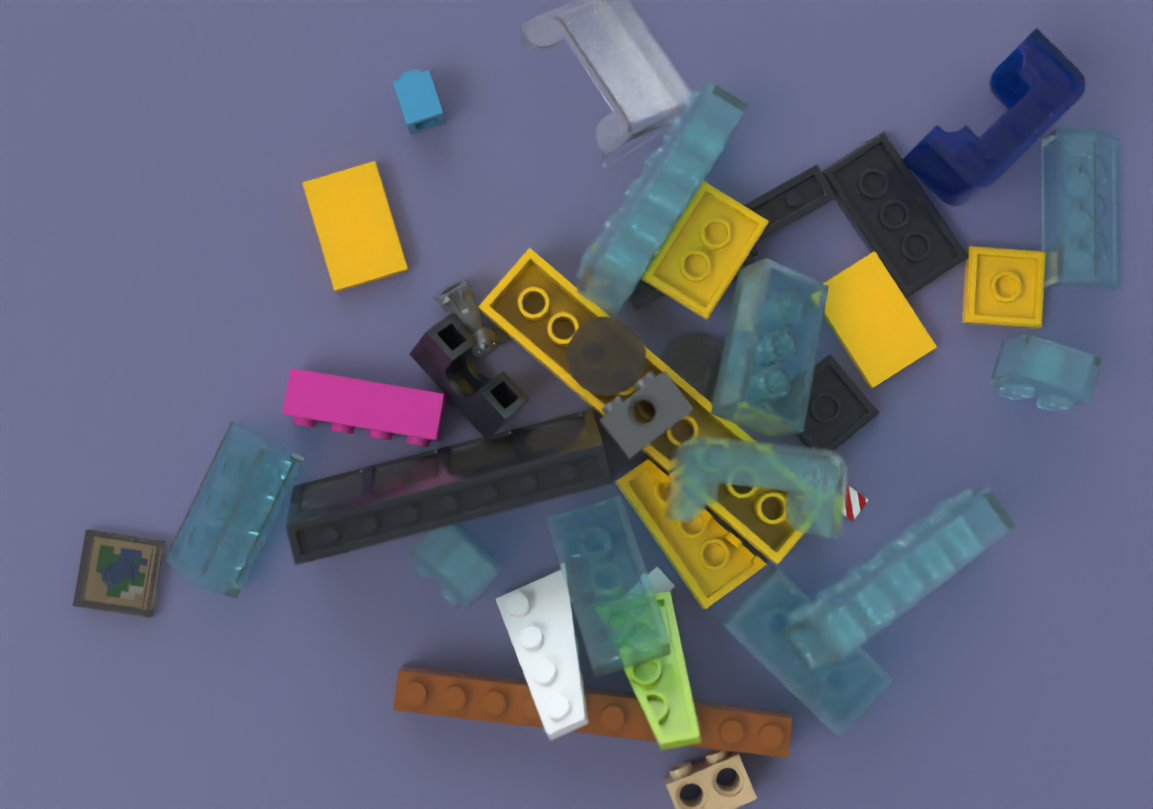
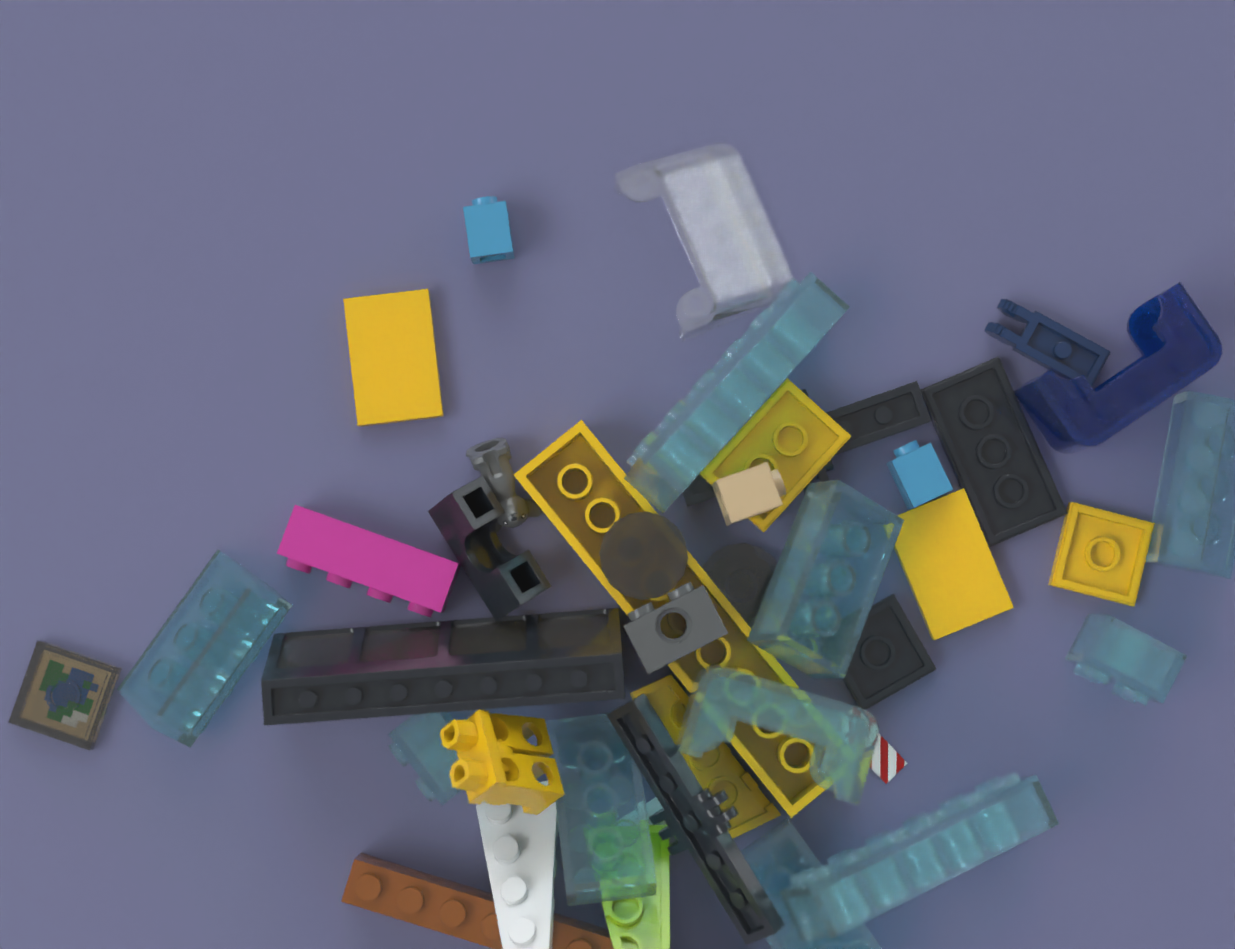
camera: 10 degrees right, 0 degrees up
(511, 560) = (500, 763): none -> yellow hips
(689, 283) = (749, 493): none -> tan brick
(694, 580) = (695, 820): none -> black hinge
(832, 245) = (918, 474): none -> dark azure brick
(922, 109) = (1050, 343): none -> dark blue hinge

